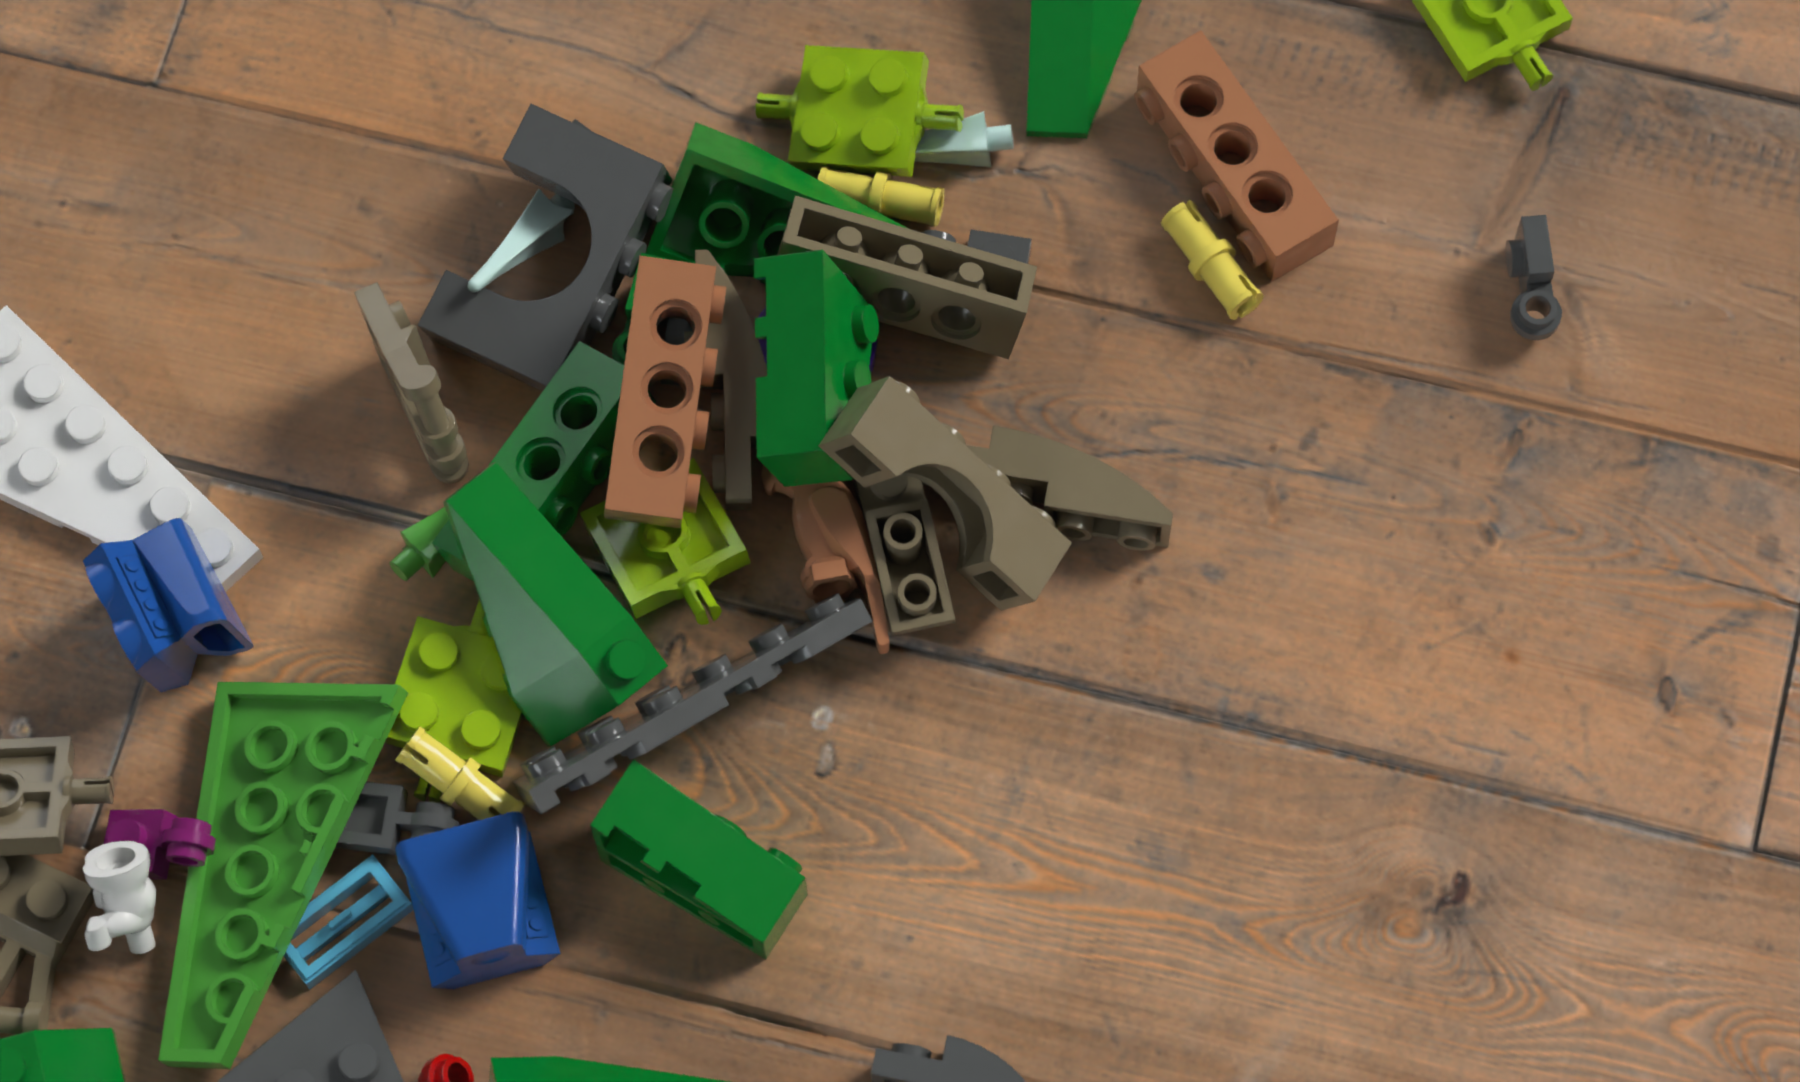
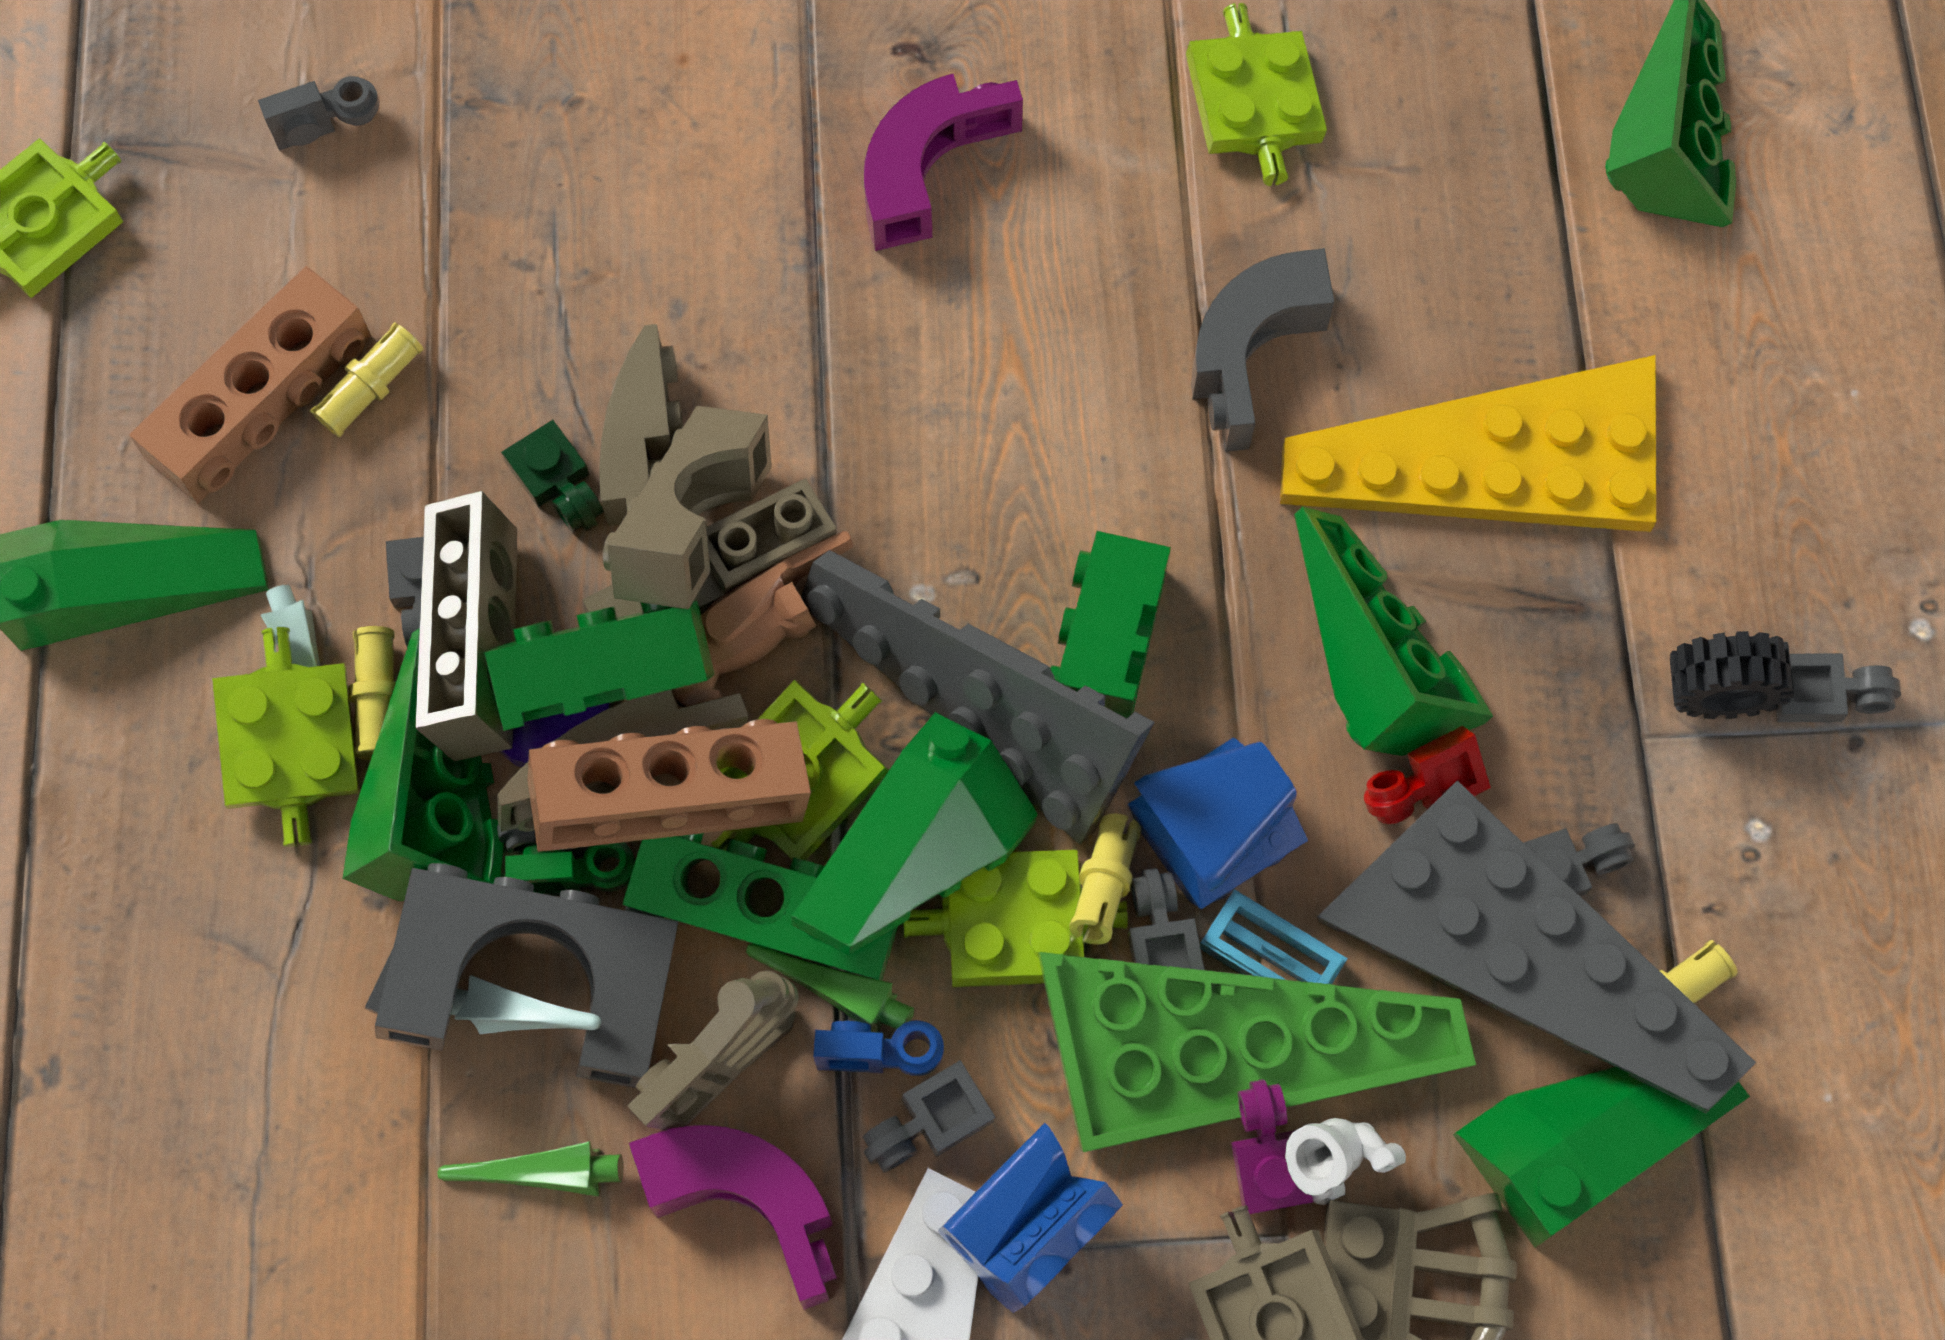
camera: 110 degrees left, 0 degrees up
(301, 404) = (728, 1164): none -> magenta arch
(304, 576) = (942, 1109): none -> dark grey plate
(377, 251) = (567, 1169): none -> bright green piece
(384, 517) = (854, 1048): none -> blue plate
(1068, 403) = (551, 467): none -> dark green plate
(1307, 825) = (914, 137): none -> magenta arch

